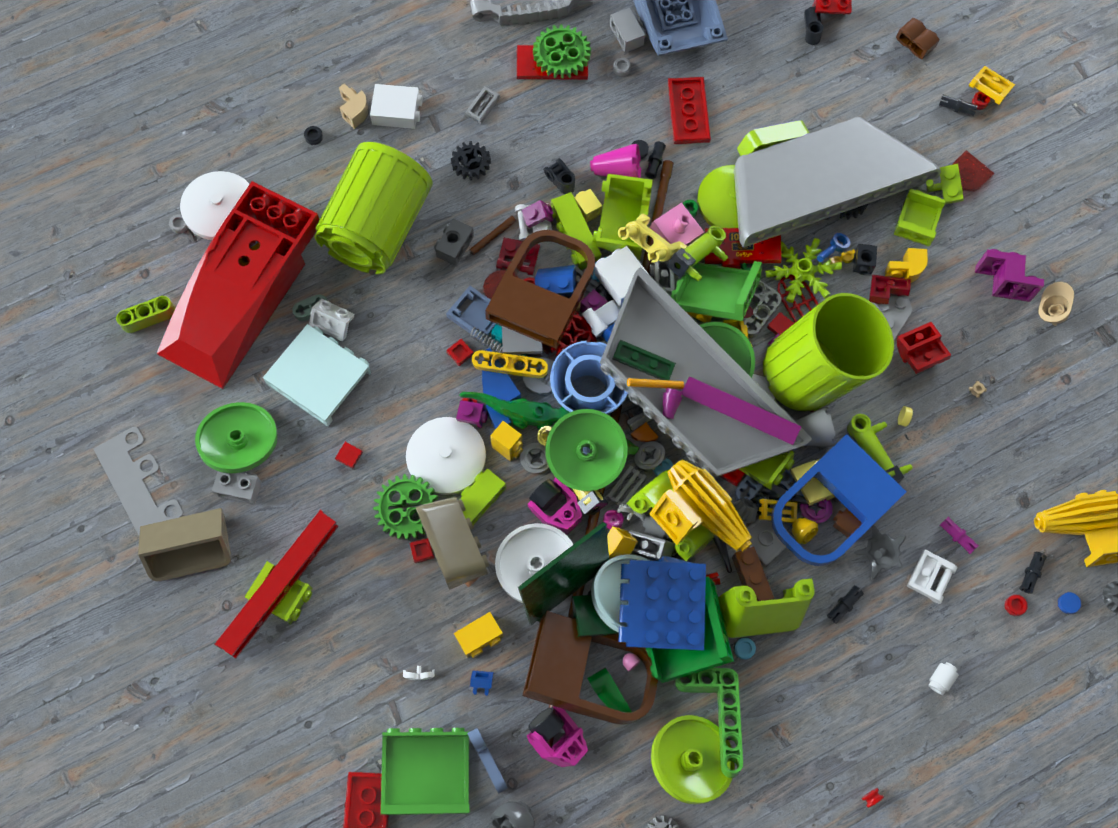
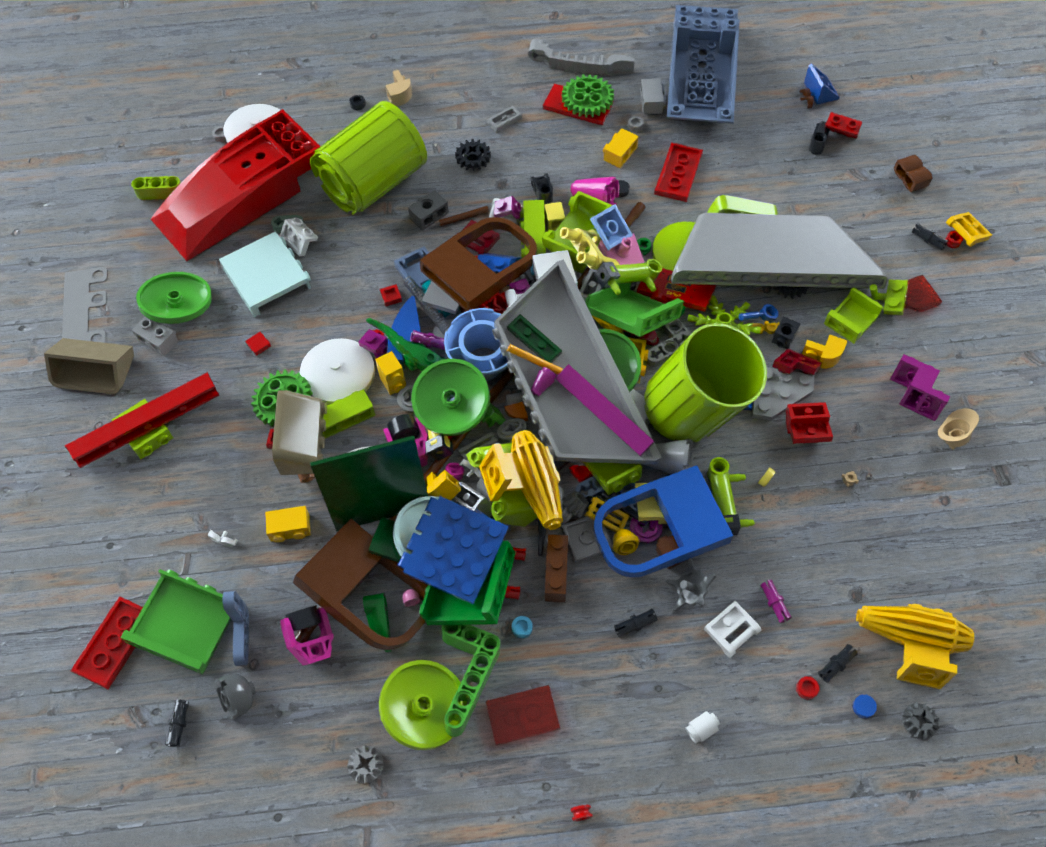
camera: 25 degrees right, 10 degrees down
(395, 106) = (432, 99): white brick -> none
(481, 679) = (271, 562): blue tile -> none
(509, 366) = (423, 312): yellow beam -> none
(529, 392) = (428, 340): none -> magenta pin
(620, 102) = (620, 148): none -> yellow brick
(655, 160) = (631, 200): black pin -> none
(660, 205) = (611, 227): none -> light blue slope
(749, 617) = (551, 598): lime windscreen -> none
(782, 731) = (522, 715): none -> clear red tile

